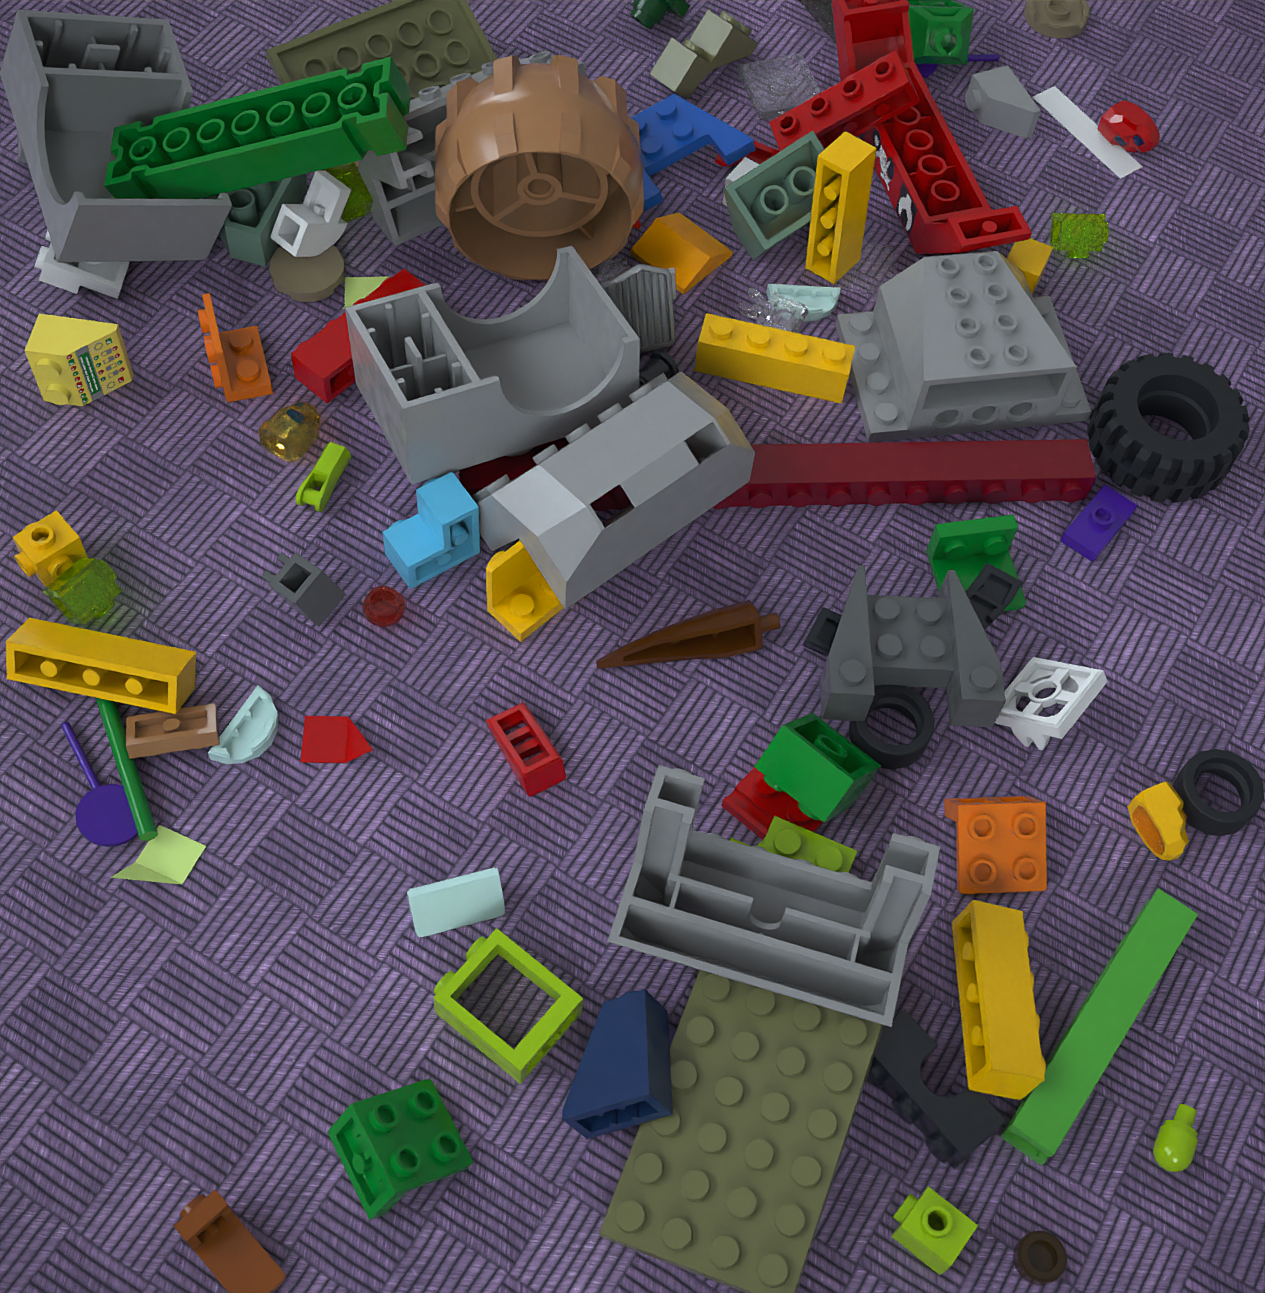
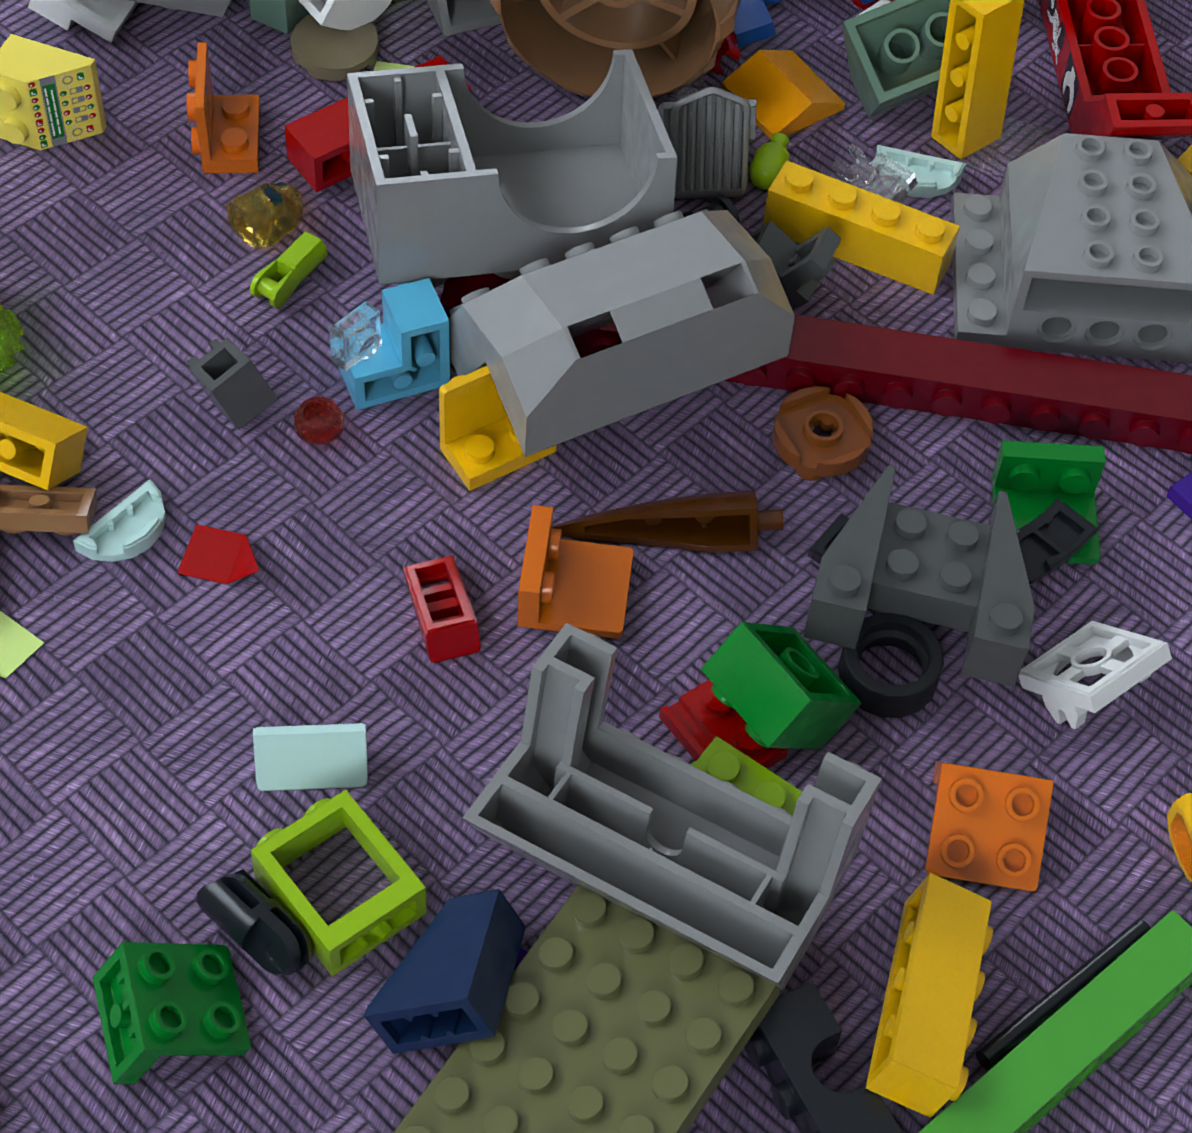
camera: 15 degrees right, 5 degrees down
(402, 532) = (355, 336): none -> clear plate
(451, 1055) = (256, 923): none -> black arm
(627, 707) = (572, 581): none -> orange bracket
(688, 313) = (769, 161): none -> lime cylinder
(740, 397) = (799, 265): none -> dark grey brick
(783, 558) = (818, 455): none -> dark orange plate
(1088, 970) = (1043, 1009): none -> black bar

